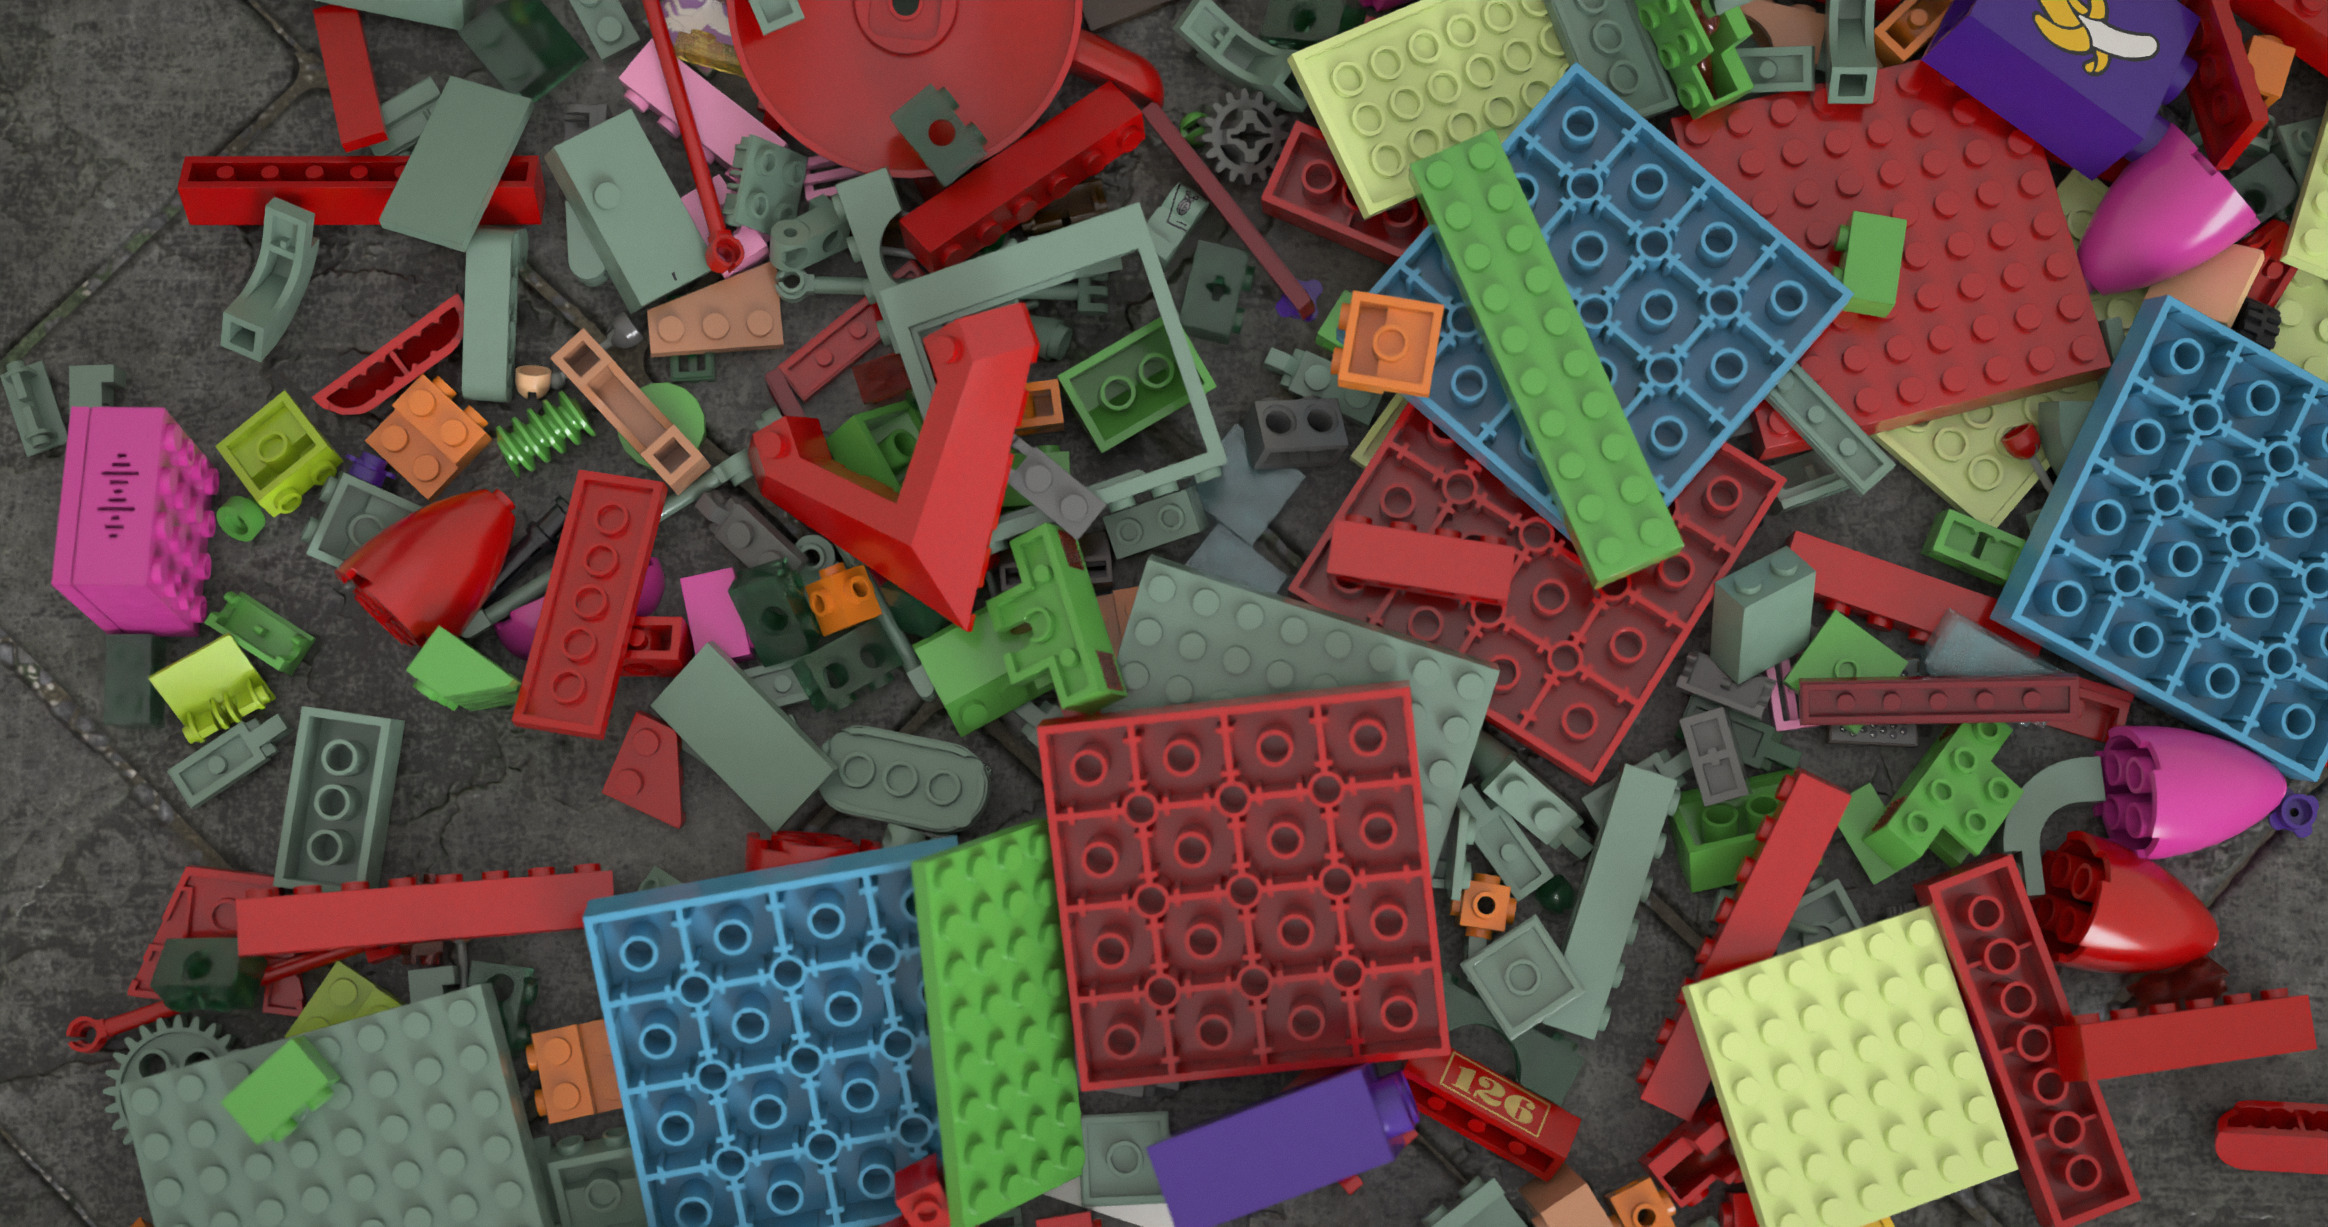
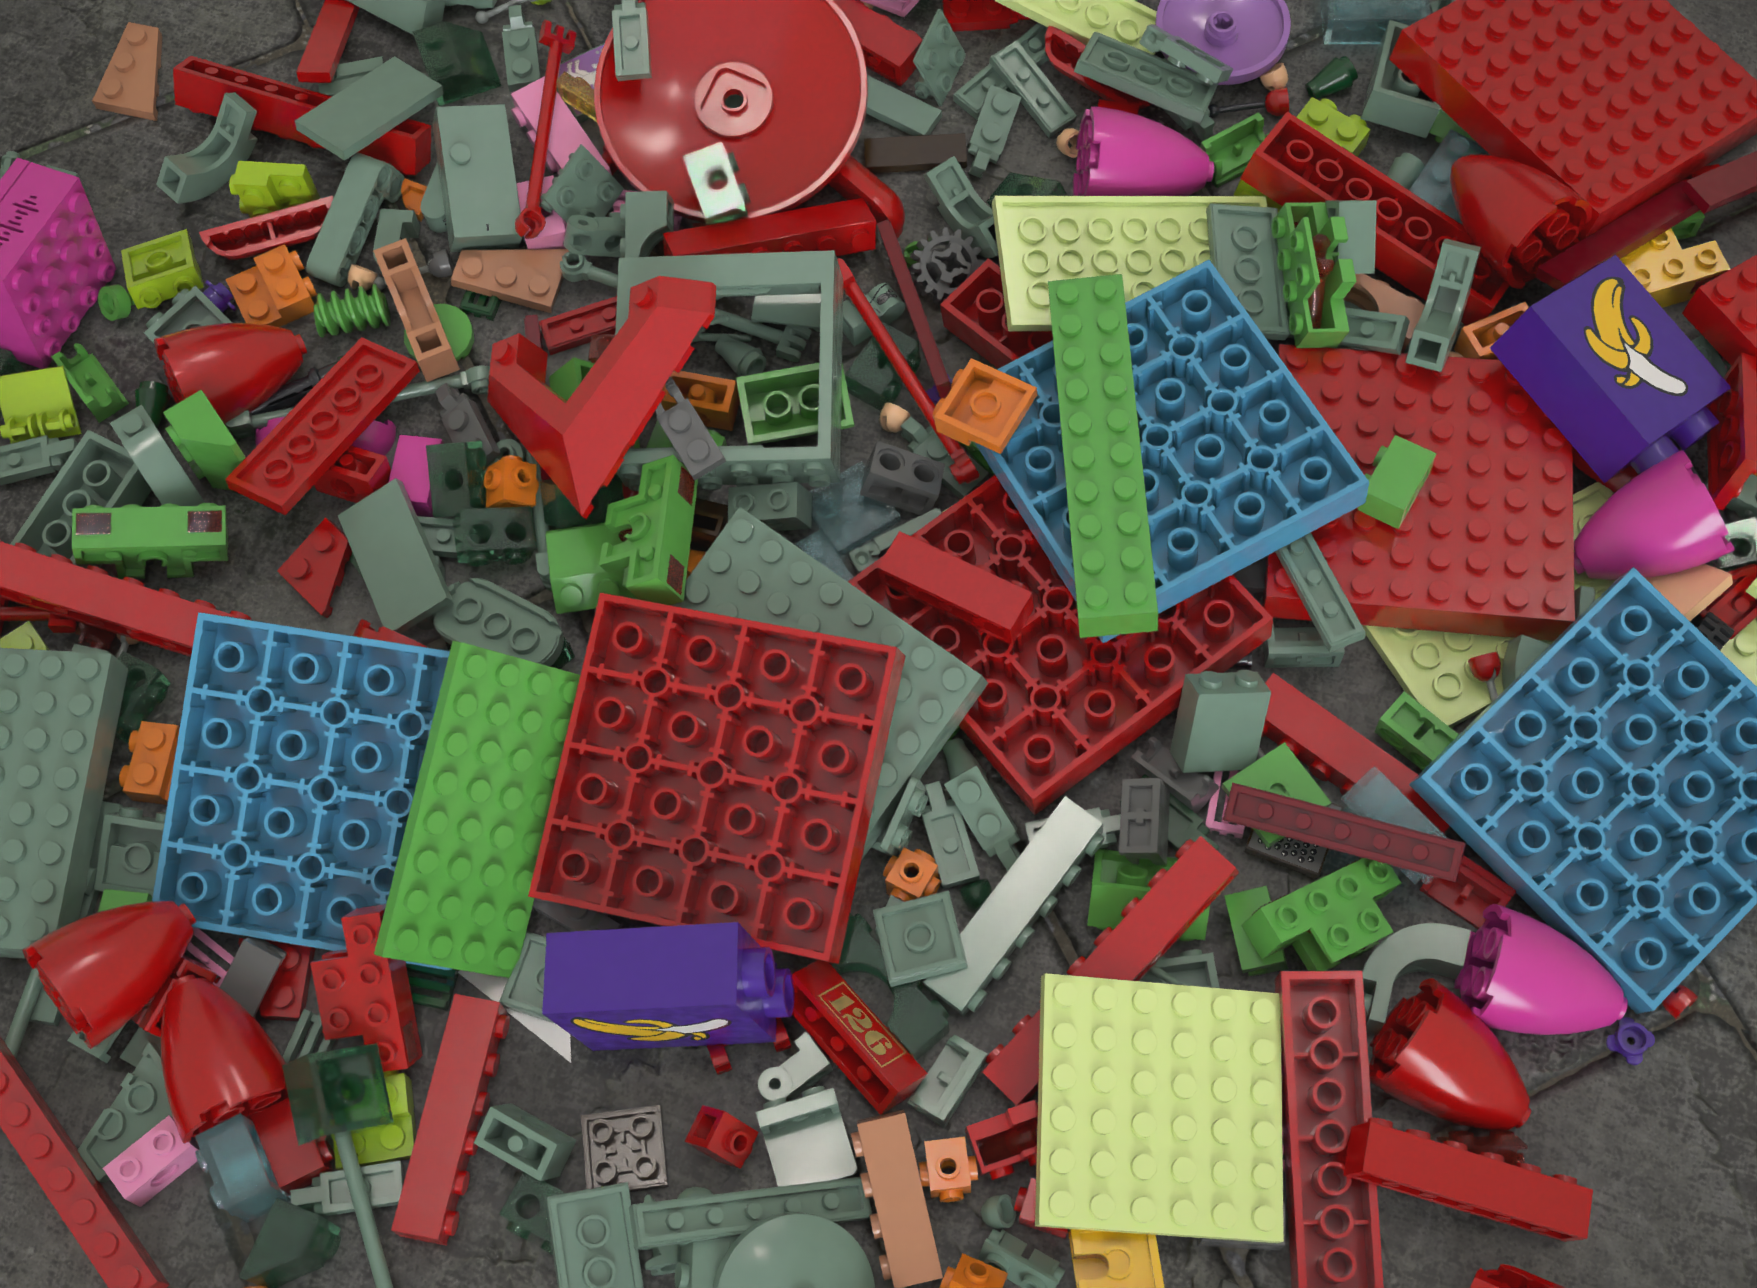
camera: 30 degrees right, 15 degrees down
(108, 195) = (132, 74): none -> nougat wing
(351, 638) = (154, 399): none -> dark green cone
(370, 311) = (271, 186): none -> lime plate
(409, 720) = (155, 459): none -> sand green arch
(431, 819) = (139, 533): none -> bright green piece
(548, 314) = (395, 226): none -> sand green leg
(550, 251) = (412, 196): none -> orange tile
(1249, 353) = (893, 417): none -> light nougat hinge
(1311, 510) = (871, 552): none -> sand green hinge
(1358, 400) = (962, 466): none -> red hinge
(1431, 1180) = (796, 1073): none -> leg
(1605, 1109) = (948, 1081): none -> sand green hinge

